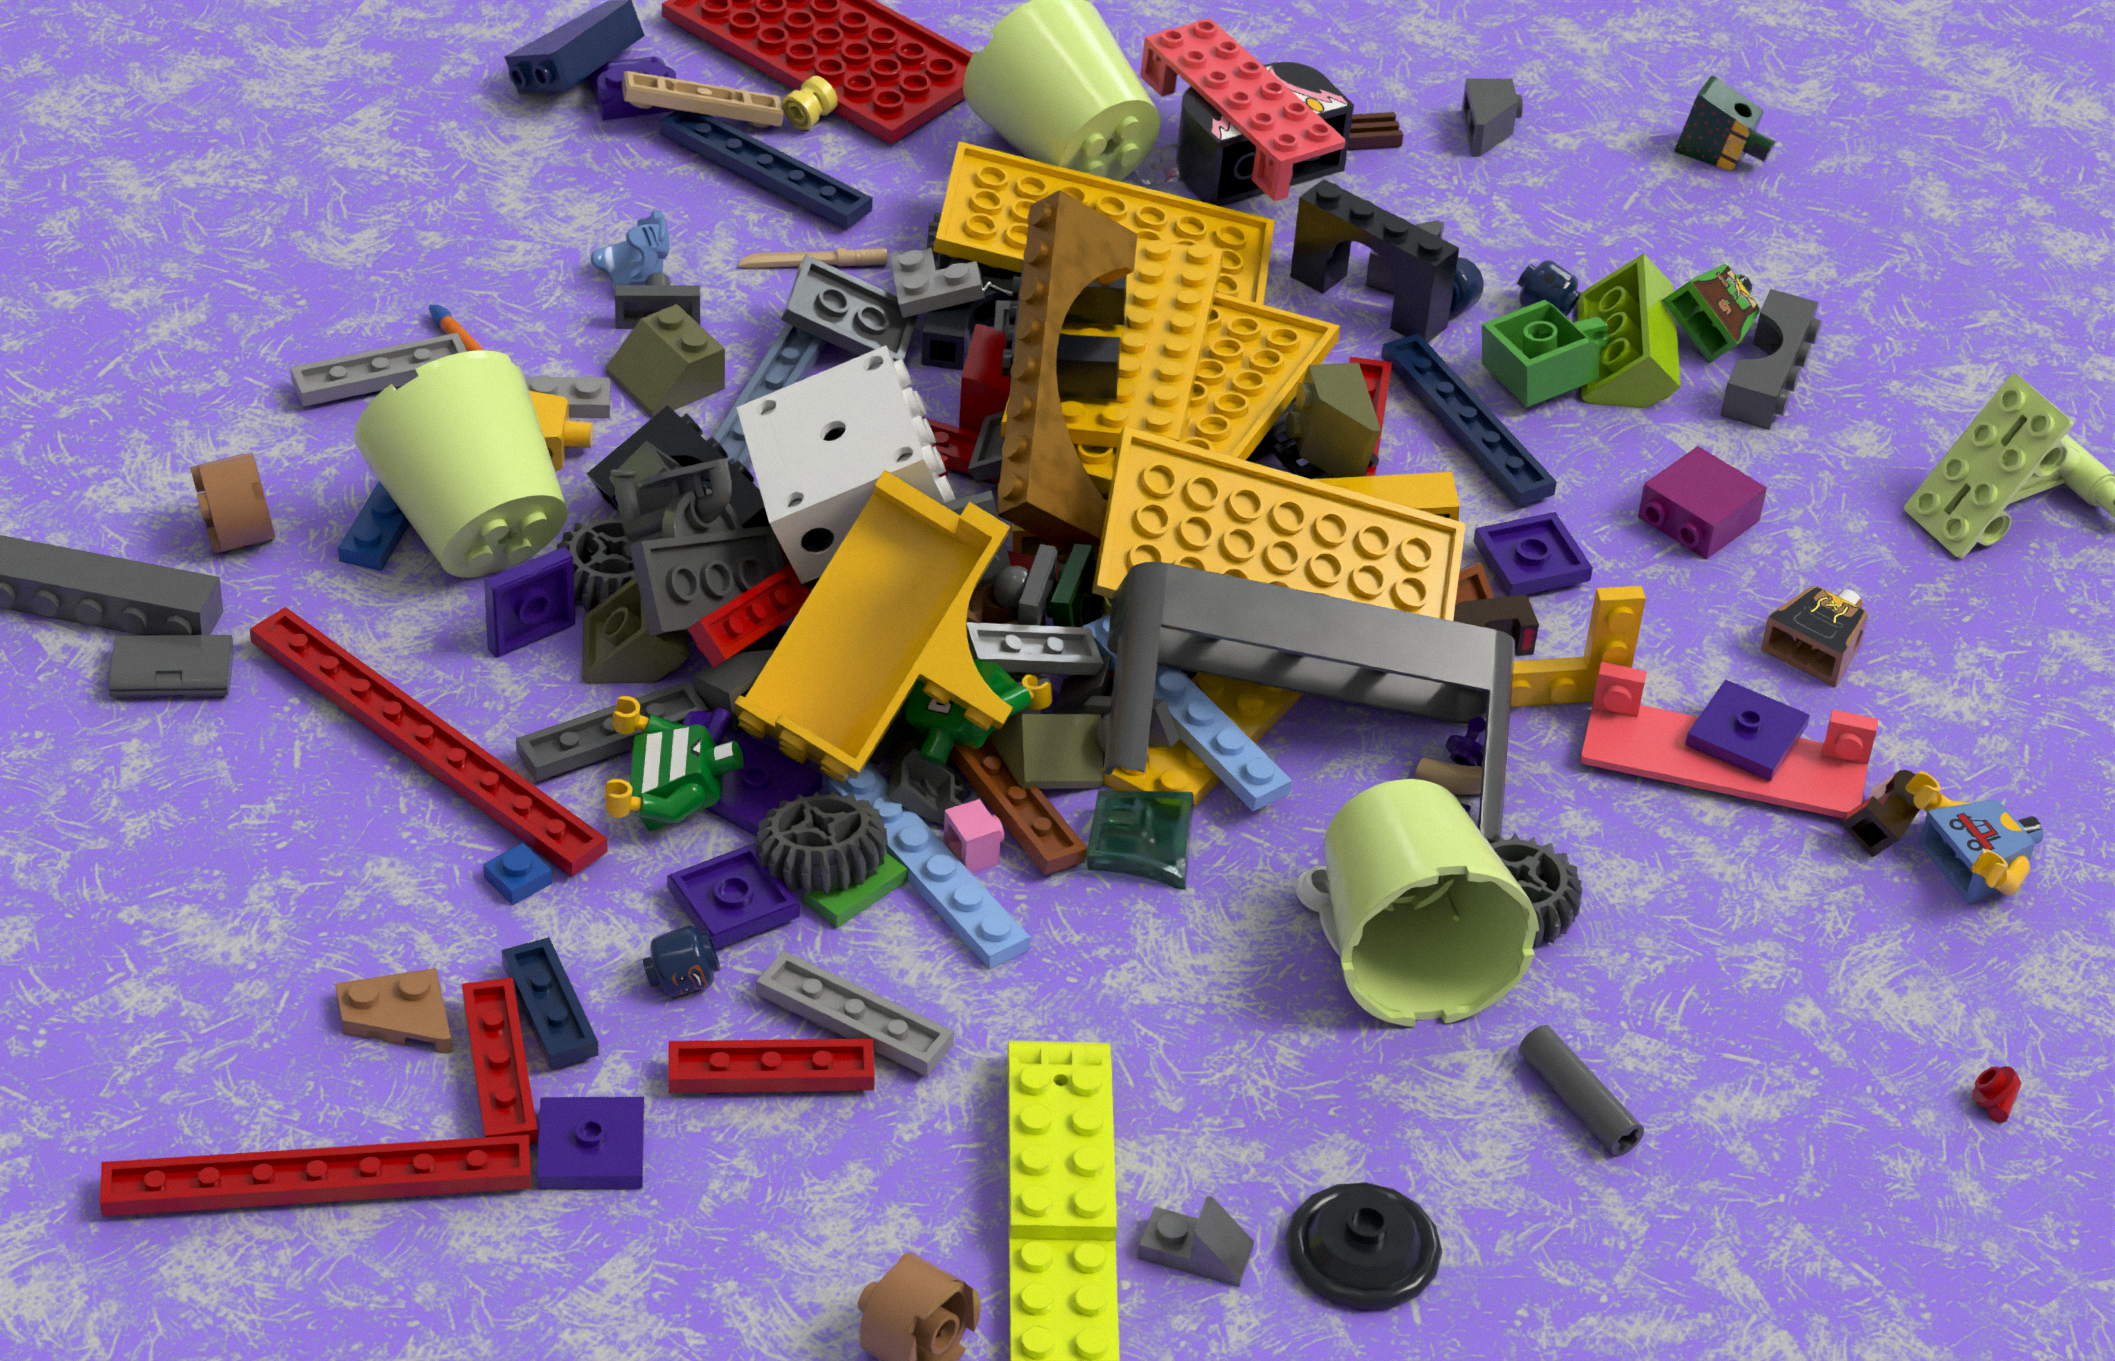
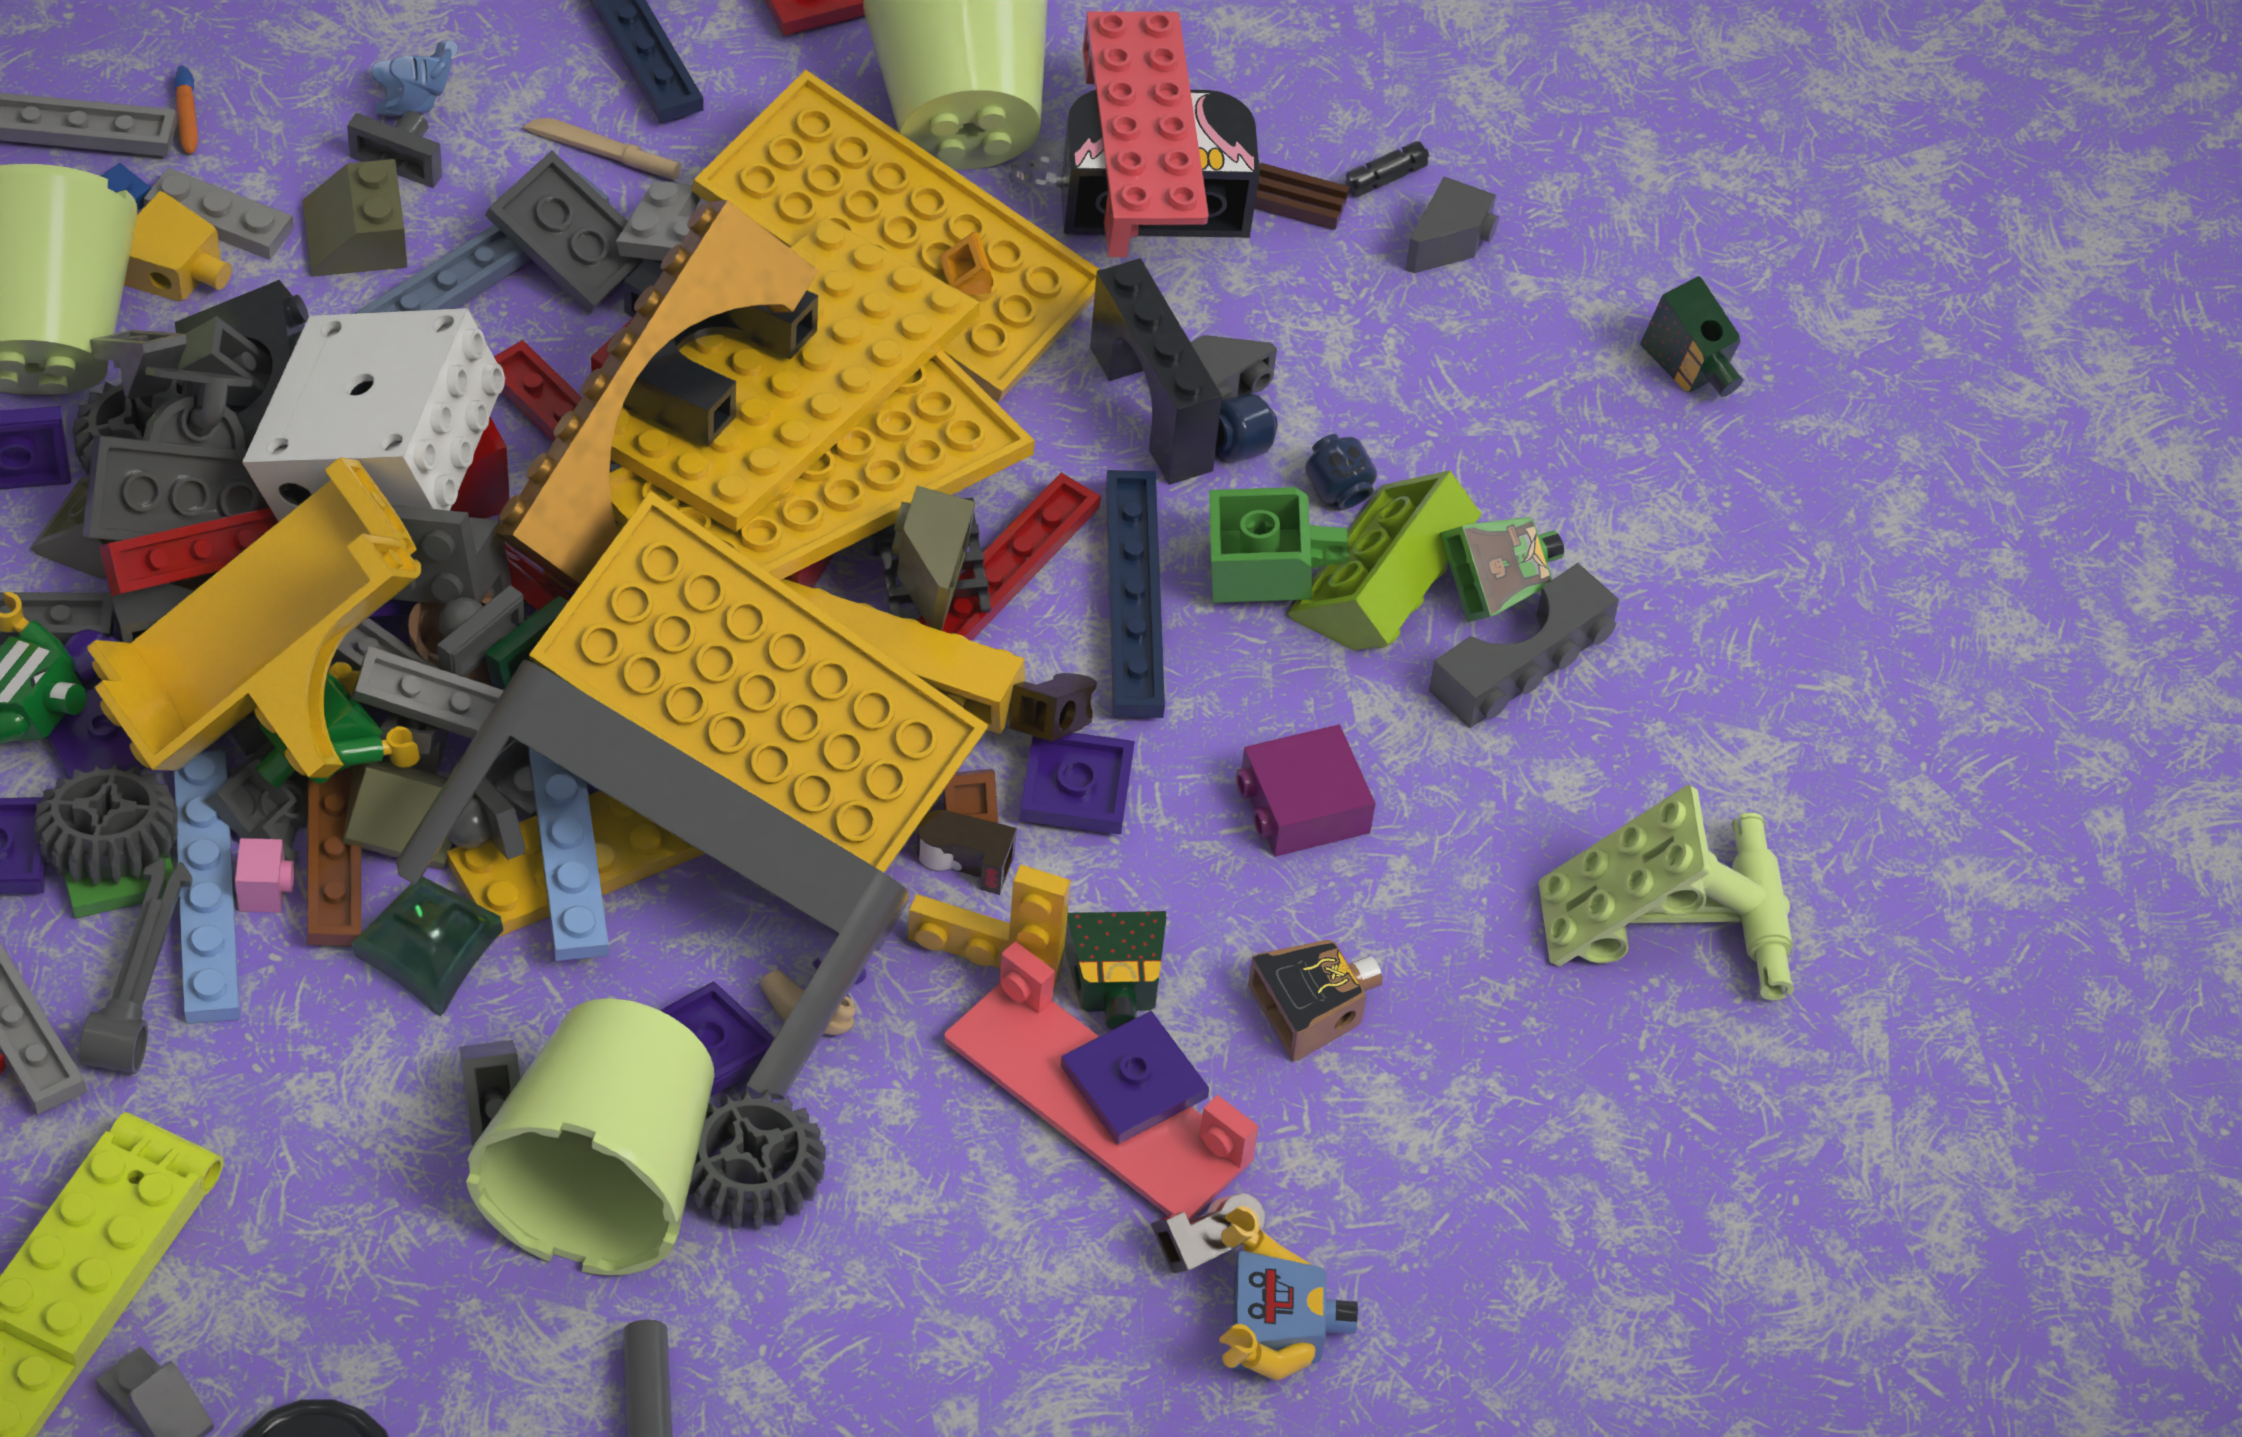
camera: 25 degrees right, 10 degrees up
(613, 484) = (136, 350): none -> flat silver slope
(950, 989) = (117, 1034): none -> dark grey piece
(1180, 230) = (967, 266): none -> light orange slope
(1288, 923) = (488, 1078): none -> dark grey slope
(1409, 93) = (1387, 168): none -> black axle
(1483, 505) = (1052, 707): none -> dark brown leg
(1676, 662) = (1115, 961): none -> dark green torso

